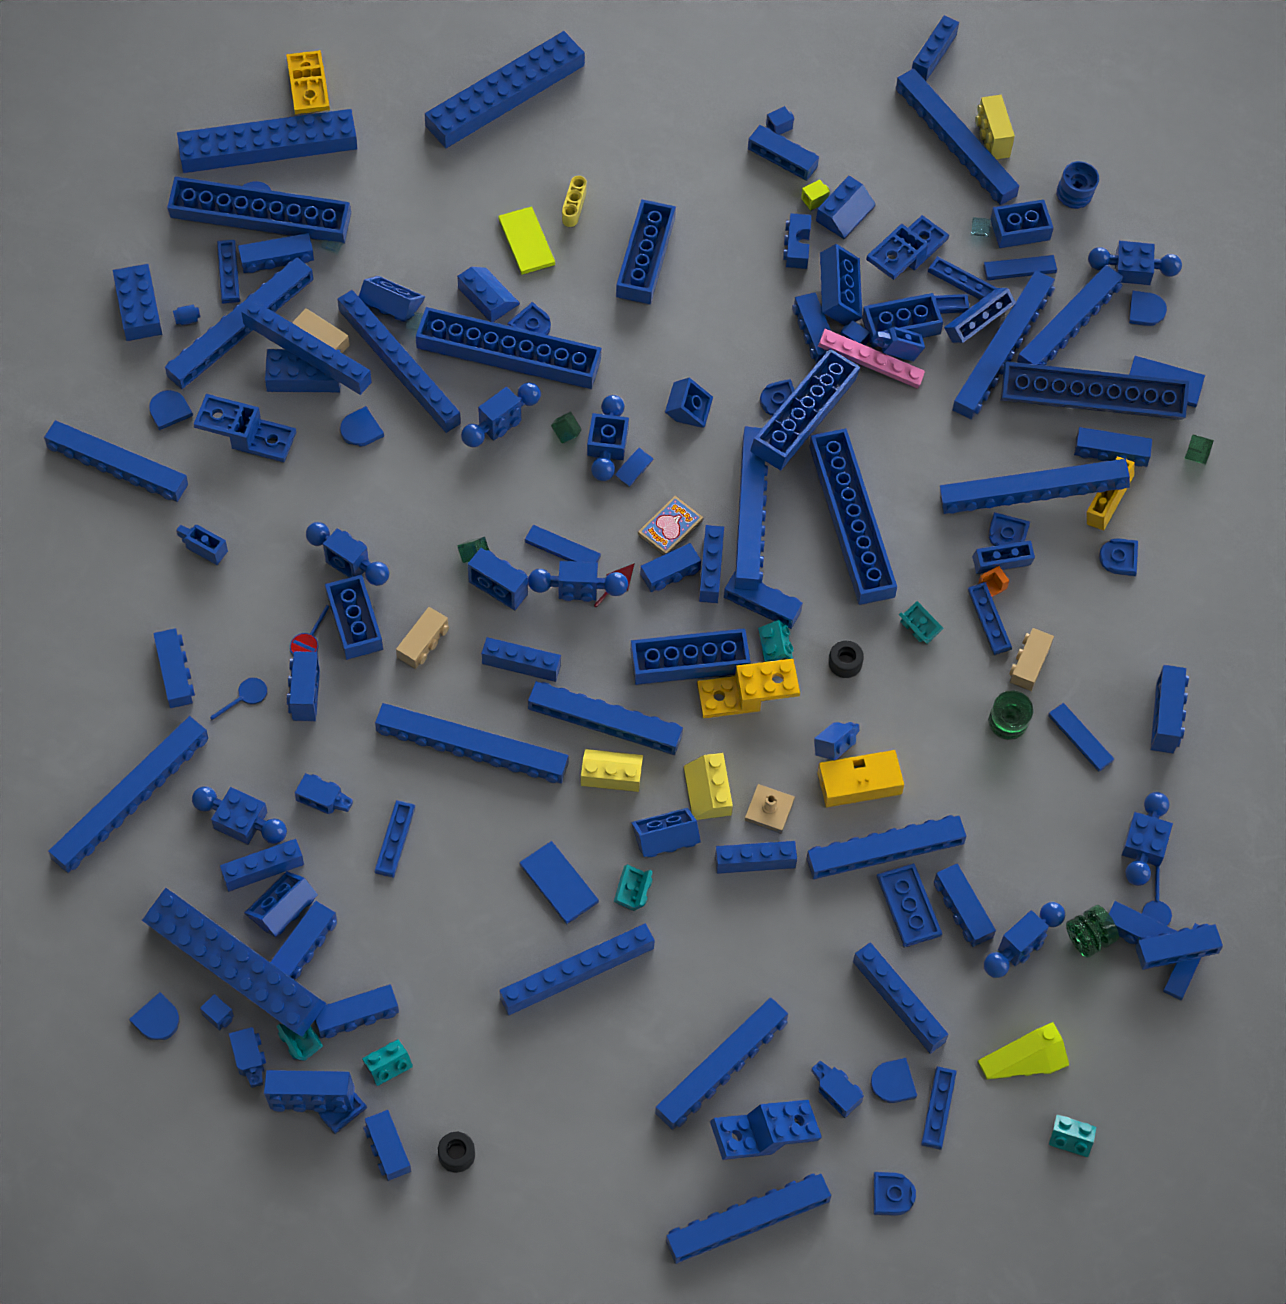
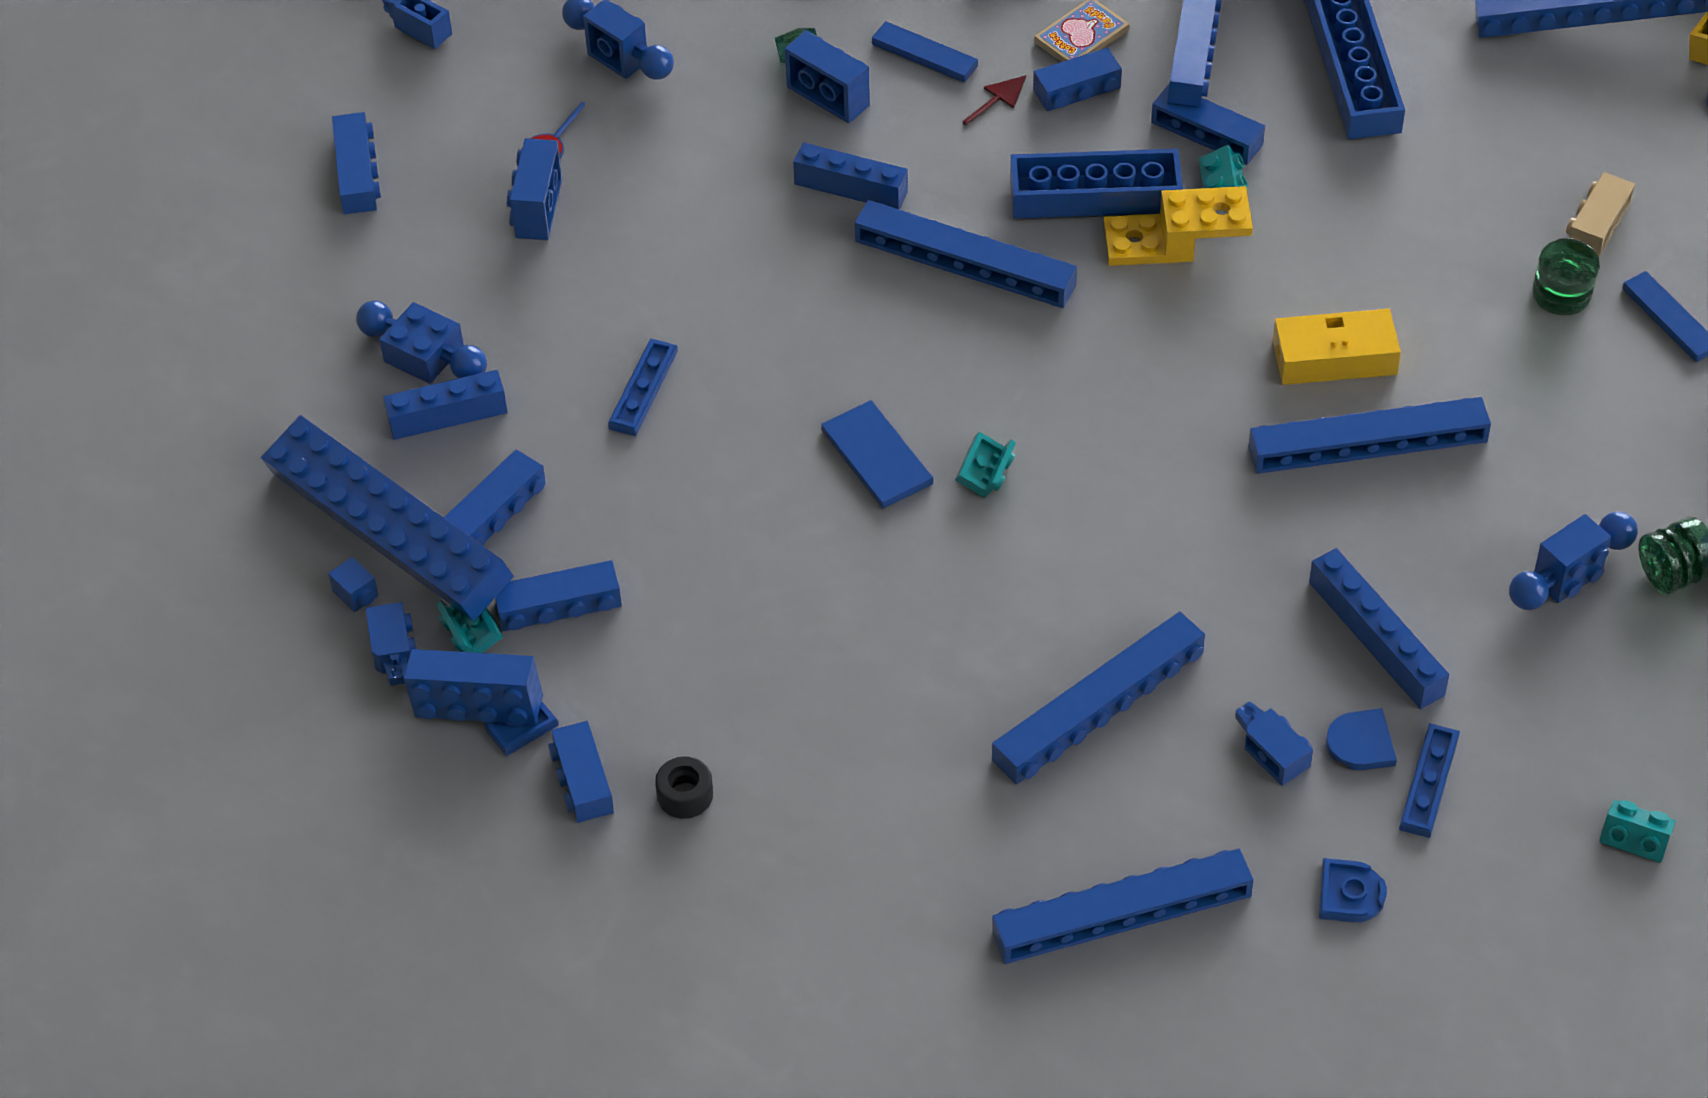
camera: 10 degrees right, 10 degrees down
(128, 794) = (266, 310): blue brick -> none
(157, 1018) = (265, 589): blue tile -> none
(250, 691) = (459, 200): blue piece -> none
(281, 903) = (468, 455): blue slope -> none
(322, 795) = (543, 325): blue hinge -> none
(354, 617) = (617, 113): blue brick -> none
(388, 1062) = (597, 665): teal bracket -> none
(422, 638) = (712, 144): tan brick -> none
(472, 743) = (769, 274): blue brick -> none
(576, 969) = (891, 561): blue brick -> none
(578, 581) = (941, 84): blue brick -> none
(611, 770) = (967, 320): light yellow slope -> none
(666, 832) = (1042, 400): blue slope -> none
(708, 787) = (1109, 346): light yellow slope -> none
(711, 564) = (1136, 77): blue brick -> none
(756, 857) = (1172, 435): blue brick -> none
(765, 1129) = (1158, 784): blue bracket -> none
(769, 808) = (1198, 379): tan tile -> none
(836, 740) = (1302, 294): blue hinge -> none
(849, 648) = (1328, 212): black tyre -> none
(909, 905) = (1400, 513): blue tile -> none
(922, 623) = (1439, 162): teal bracket -> none
(964, 905) = (1484, 516): blue brick -> none
(989, 618) = (1540, 164): blue tile -> none
(995, 580) = (1548, 119): orange panel -> none
(1005, 556) = (1564, 87): blue brick -> none
(1007, 529) = (1572, 63): blue tile -> none
(1031, 1054) = (1581, 713): neon yellow wedge -> none

